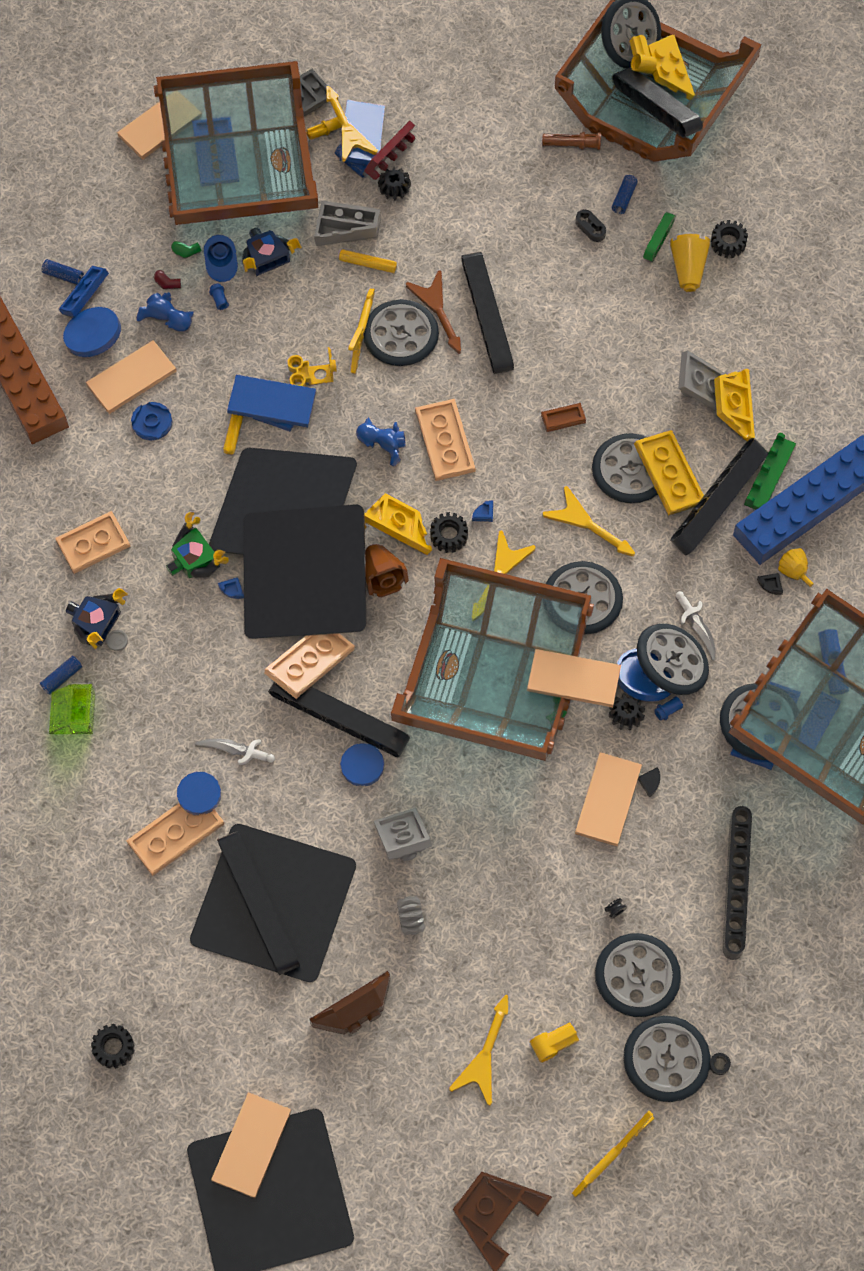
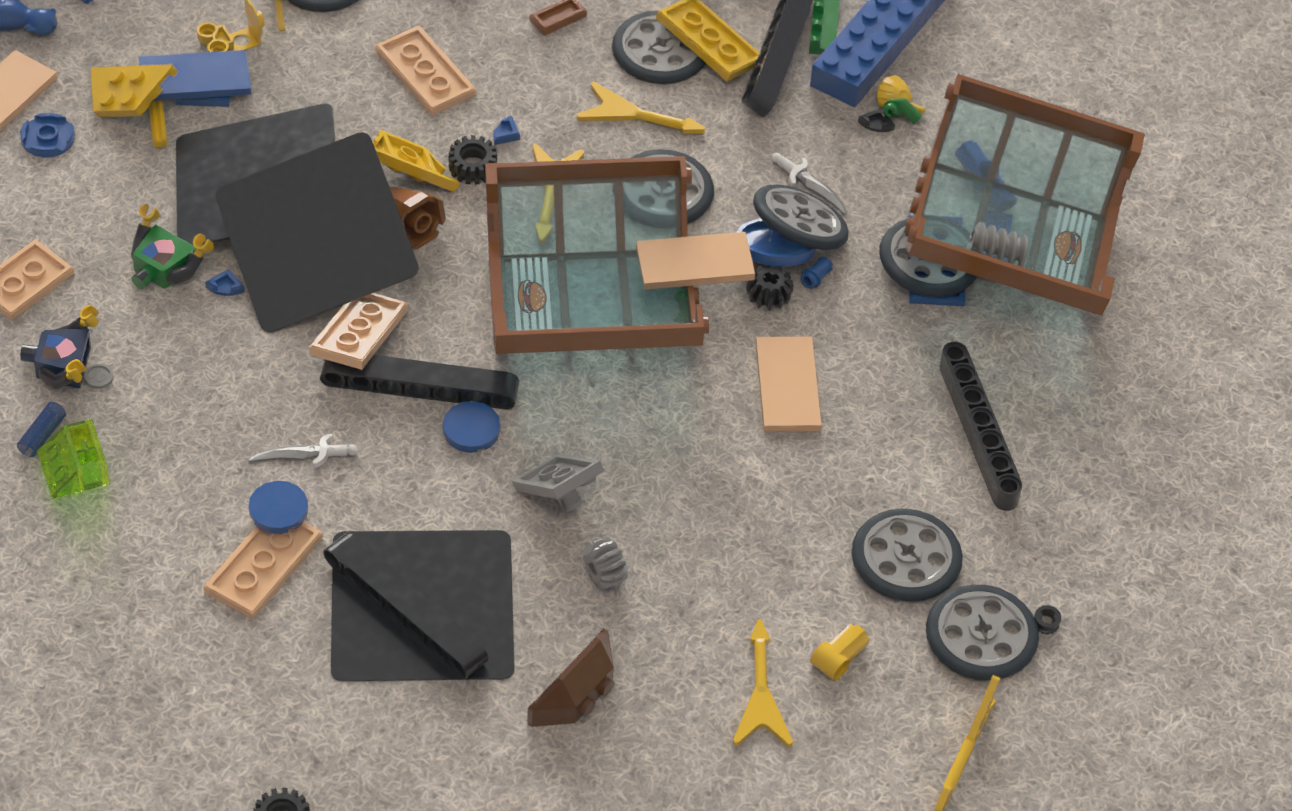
camera: 25 degrees left, 15 degrees down
(217, 400) = (127, 89): none -> yellow wing
(387, 438) = (357, 82): blue animal -> none
(615, 908) = (850, 491): black bush -> none
(650, 781) = (829, 352): black tile -> none
(788, 577) = (901, 107): none -> green arm
(809, 736) = (998, 243): none -> light grey piece

